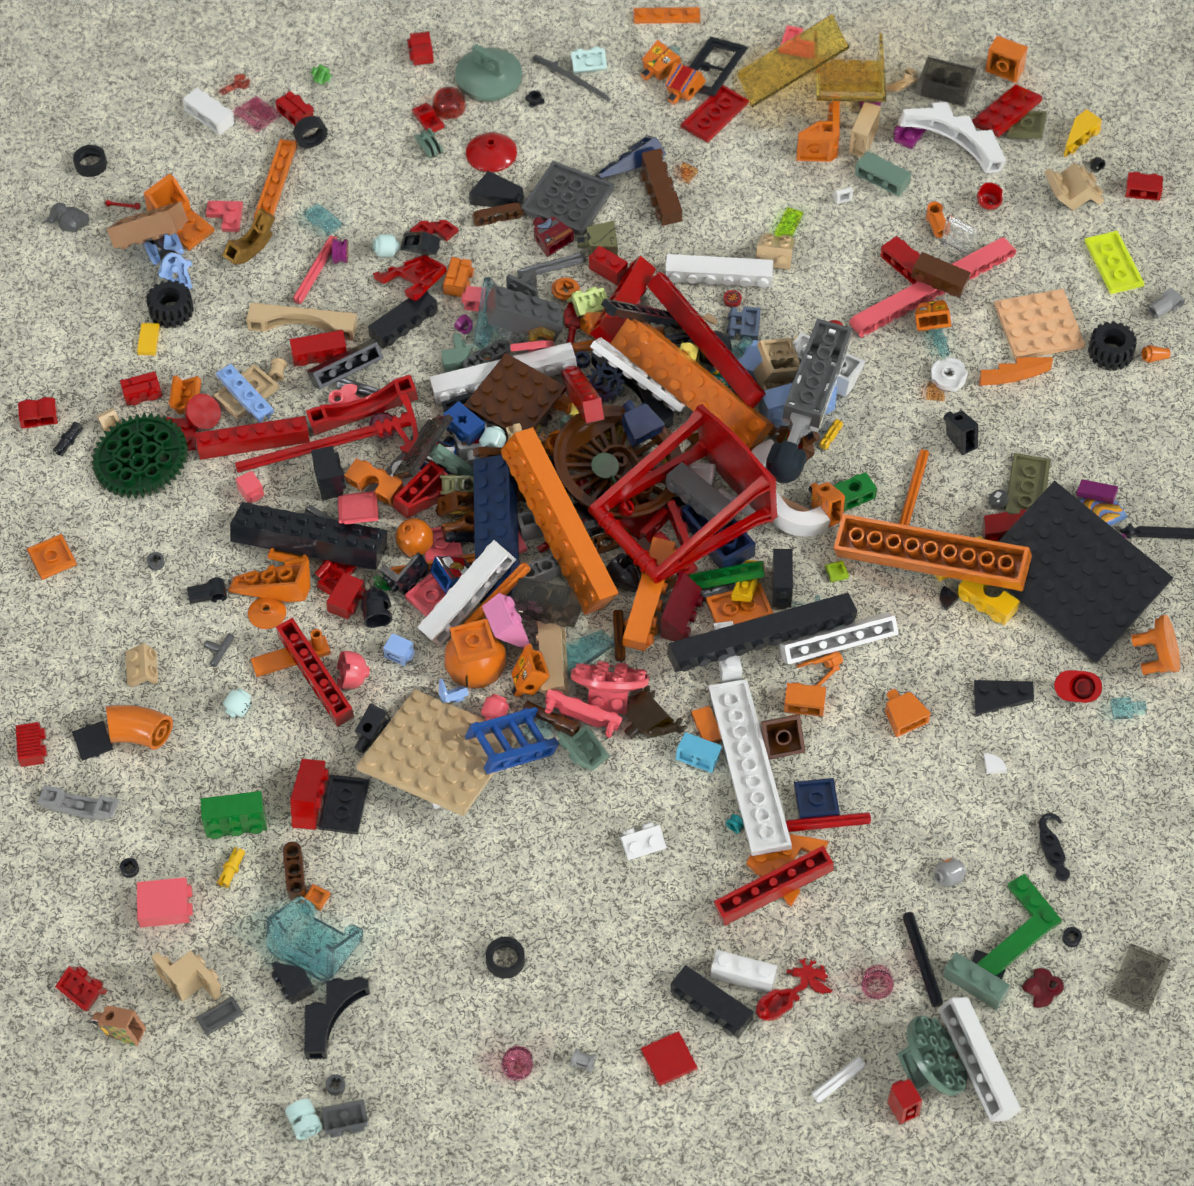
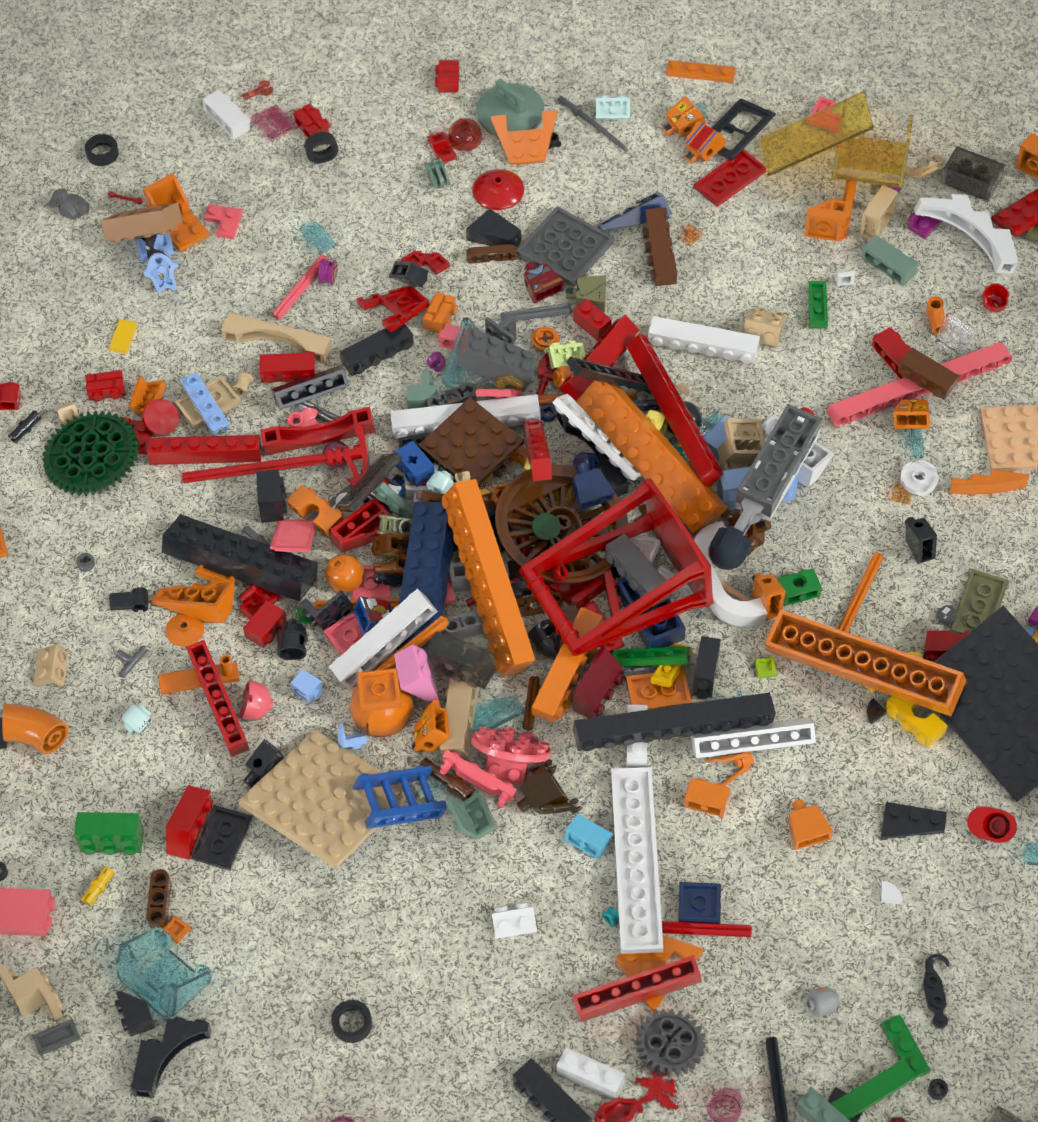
camera: 10 degrees right, 0 degrees up
(170, 314) = (150, 314): black tyre -> none
(250, 487) = (192, 499): coral brick -> none
(257, 237) = (248, 248): pearl gold arch -> none
(277, 176) = (278, 192): orange plate -> none
(321, 74) = (344, 90): bright green gear -> none
(385, 245) = (374, 271): light aqua head -> none
(494, 707) = (390, 760): coral head -> none
(510, 106) = (526, 145): none -> orange wing
(613, 378) = (557, 442): dark blue gear -> none
(629, 395) = (591, 460): none -> dark blue head
(706, 724) = (602, 808): orange tile -> none
(732, 298) = (712, 370): red tile -> none
(749, 322) = (725, 396): sand blue plate -> none
(783, 736) = (676, 833): reddish brown slope -> none
(789, 222) = (784, 299): clear neon green tile -> none
(795, 924) = (688, 1052): none -> dark grey gear
(822, 223) = (817, 304): none -> green plate
(830, 434) = (786, 523): yellow axle -> none

